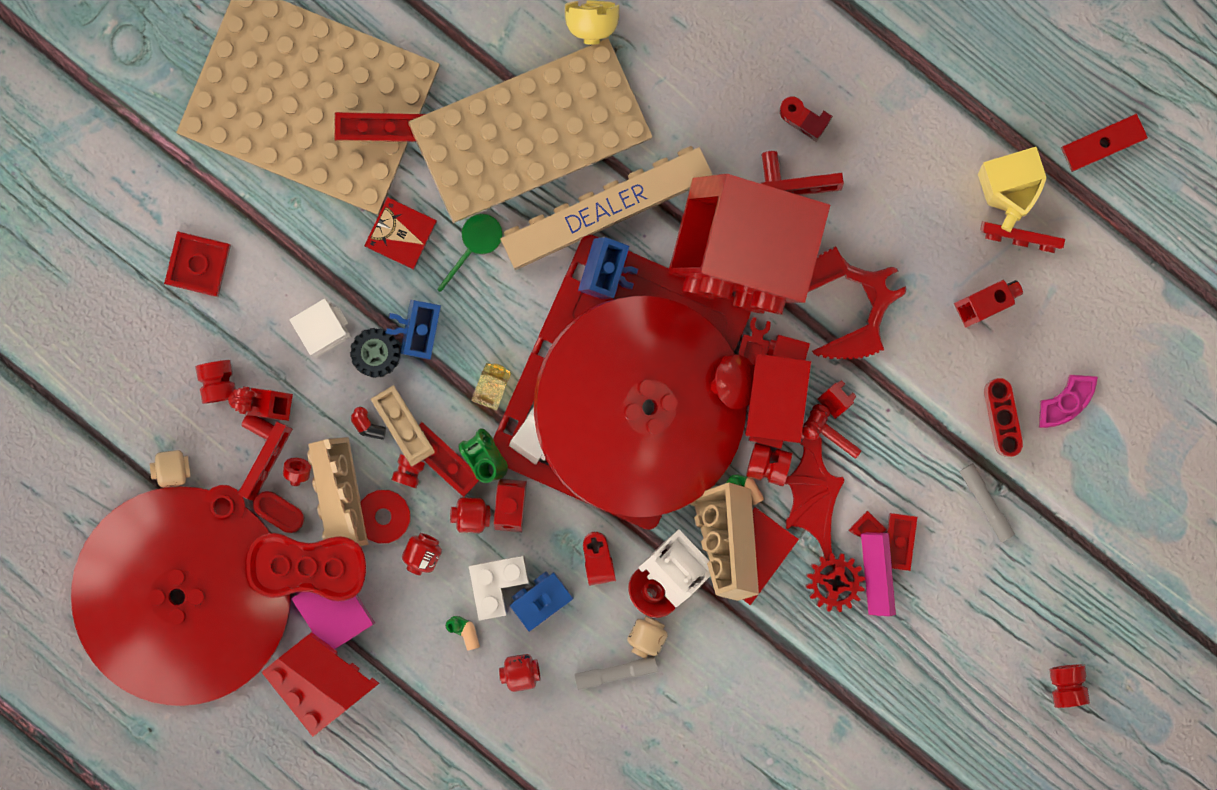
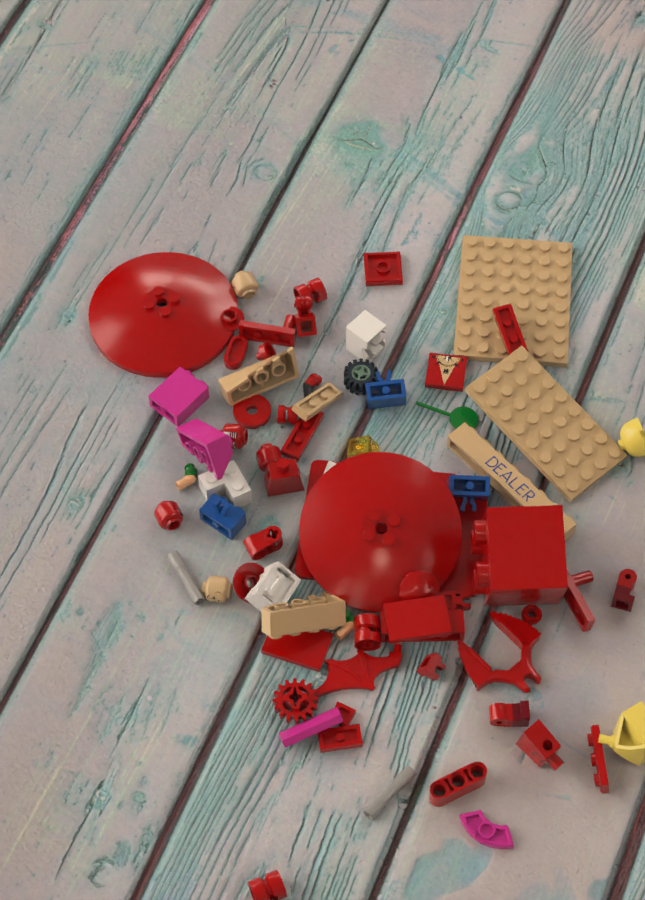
camera: 70 degrees right, 30 degrees down
(286, 566) = (205, 373): red plate -> none
(317, 682) = (126, 394): red wedge -> none
(437, 597) = (207, 445): none -> dark pink wedge
(481, 453) = (312, 455): green piece -> none
(817, 424) = (409, 657): red piece -> none
(931, 323) = (510, 714): none -> leg

